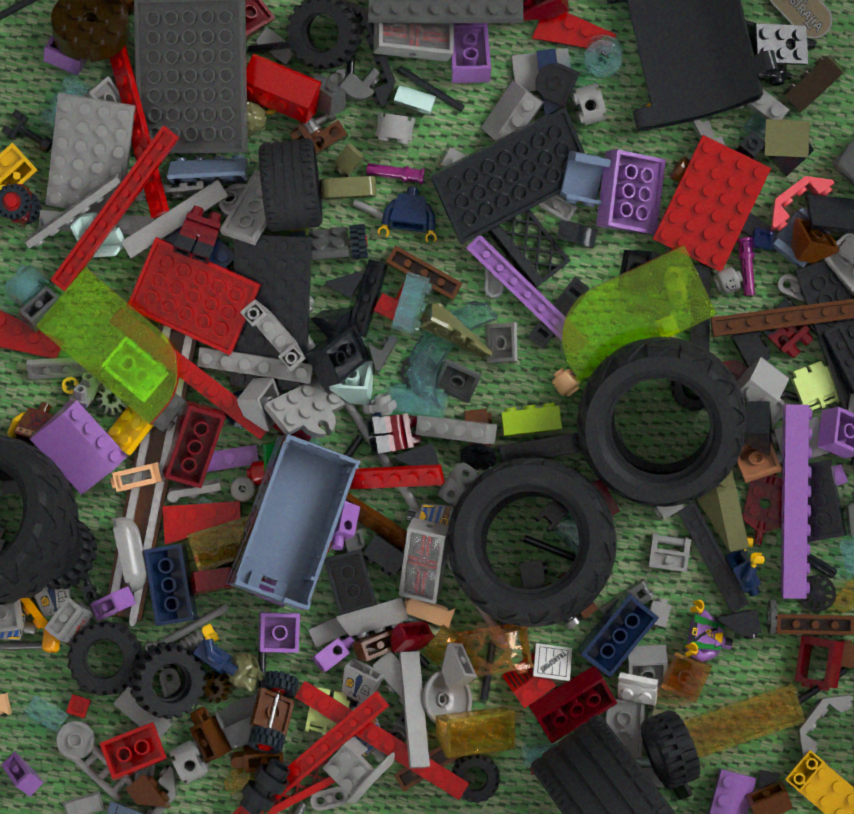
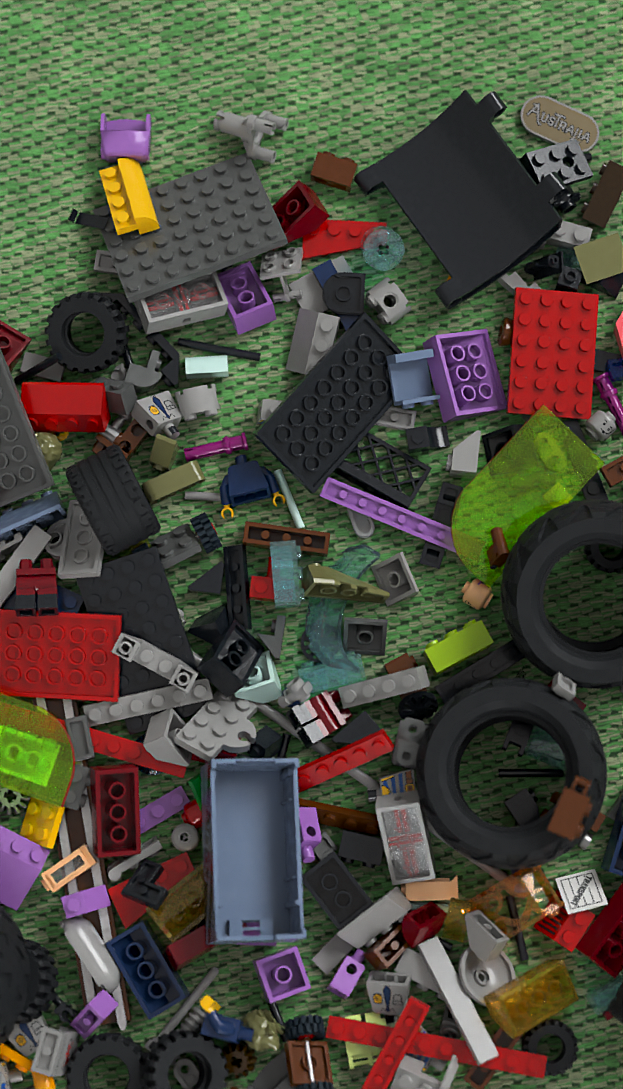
camera: 25 degrees left, 5 degrees down
(141, 509) = (85, 901): none -> medium lavender slope
(187, 373) = (80, 737): none -> dark grey tile
(191, 516) = (142, 887): none -> black tile
(340, 438) = (266, 744): none -> black brick
(357, 126) = (158, 415): none -> light grey torso
(440, 239) = (289, 499): none -> light aqua piece
(511, 37) = (279, 265): none -> light grey plate
(564, 592) = (571, 810): none -> reddish brown brick
(596, 354) = (499, 551): none -> reddish brown piece
(600, 263) = (464, 458): none -> light grey slope
(602, 488) = (564, 686): none -> light grey plate
(736, 125) = (545, 266): none -> black hinge

